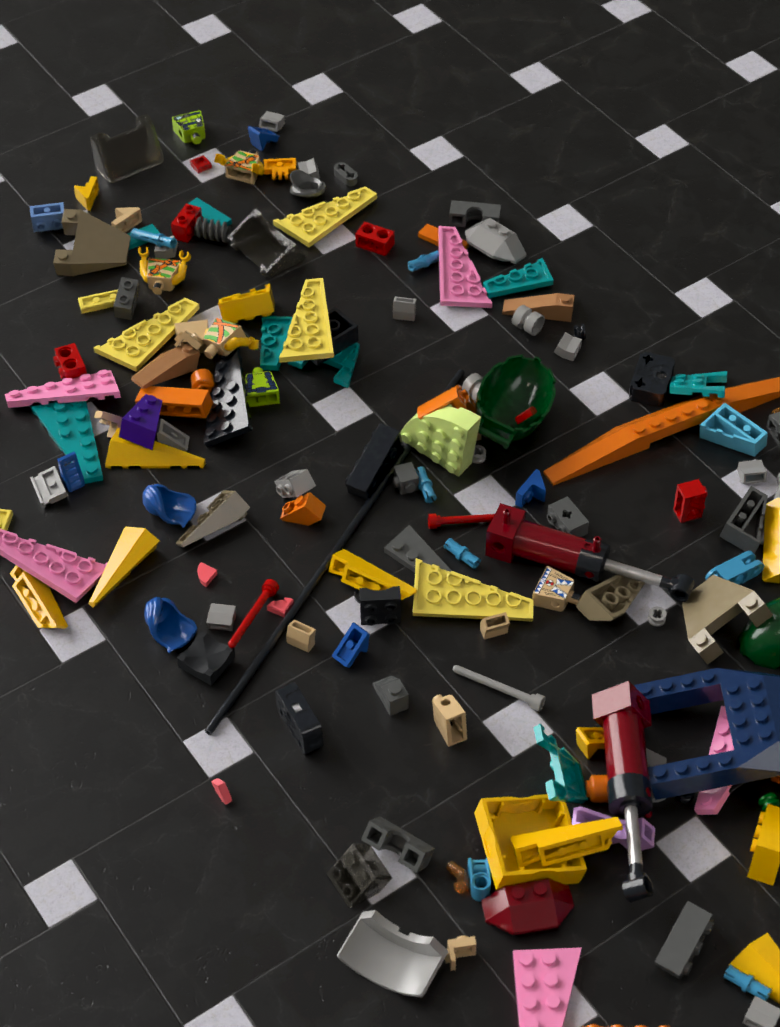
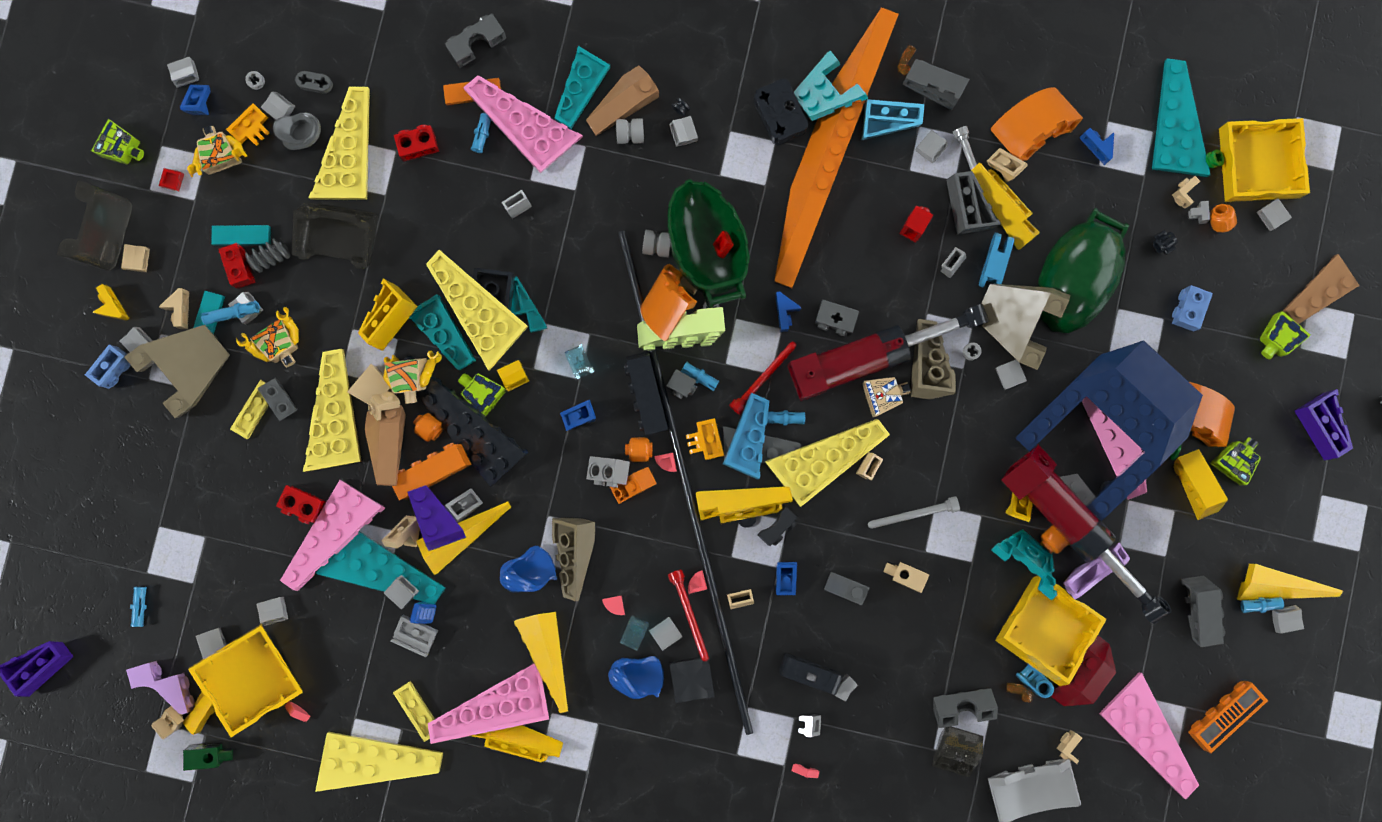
camera: 45 degrees left, 35 degrees up
(74, 445) = (401, 592): none -> light grey piece
(131, 183) = (135, 258): none -> tan piece
(200, 597) = (634, 632): none -> clear light blue slope
(261, 761) = (812, 725): none -> tile
(293, 394) = (513, 375): none -> yellow piece
(310, 151) = (259, 85): none -> light grey bush
(314, 443) = (578, 415): none -> blue slope
(315, 753) = (846, 687): none -> light grey piece
(331, 494) = (639, 449): none -> orange head
(343, 518) = (666, 462): none -> coral tile
(346, 420) = (579, 361): none -> clear light blue slope
(387, 524) = (706, 440): none -> light orange hinge
(419, 539) = (747, 444): none -> dark azure wing
(495, 241) = (519, 60): light grey wedge -> none
(564, 842) = (1079, 615): yellow wedge -> none
(674, 651) = (1010, 374): none -> light grey piece
(698, 548) = (961, 257): none -> light grey piece

